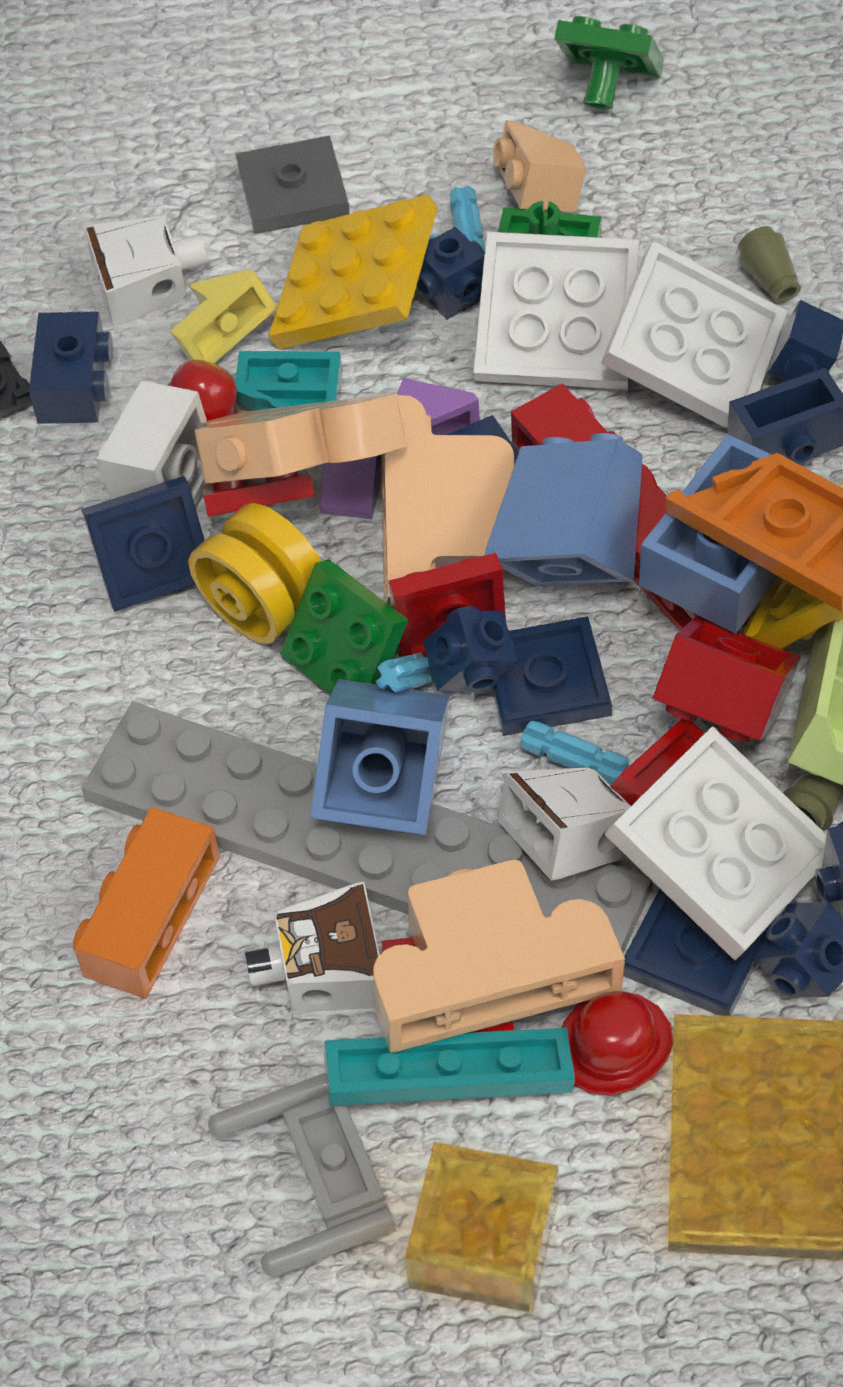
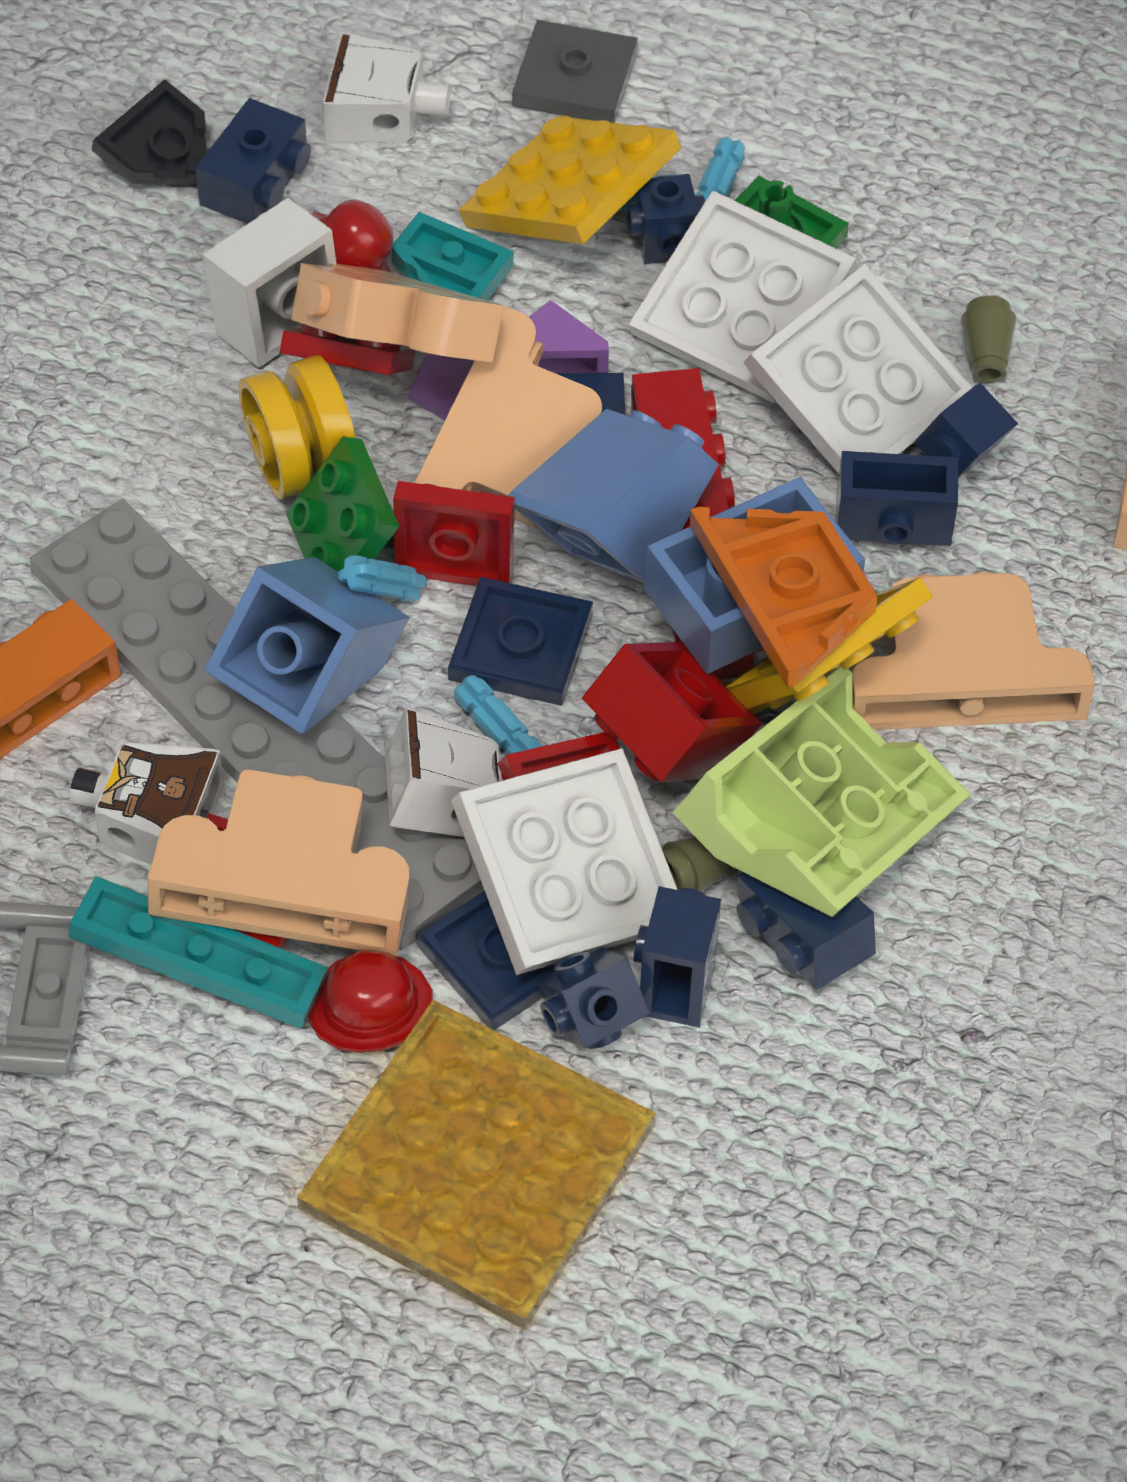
camera: 20 degrees right, 0 degrees up
(145, 542) = (209, 349): dark blue tile -> none
(226, 314) = (428, 171): light yellow slope -> none
(470, 650) = (452, 582): dark blue brick -> none
(482, 1227) = (136, 1105): clear yellow brick -> none
(539, 167) = (815, 151): light nougat slope -> none
(608, 53) = (954, 64): green plate -> none

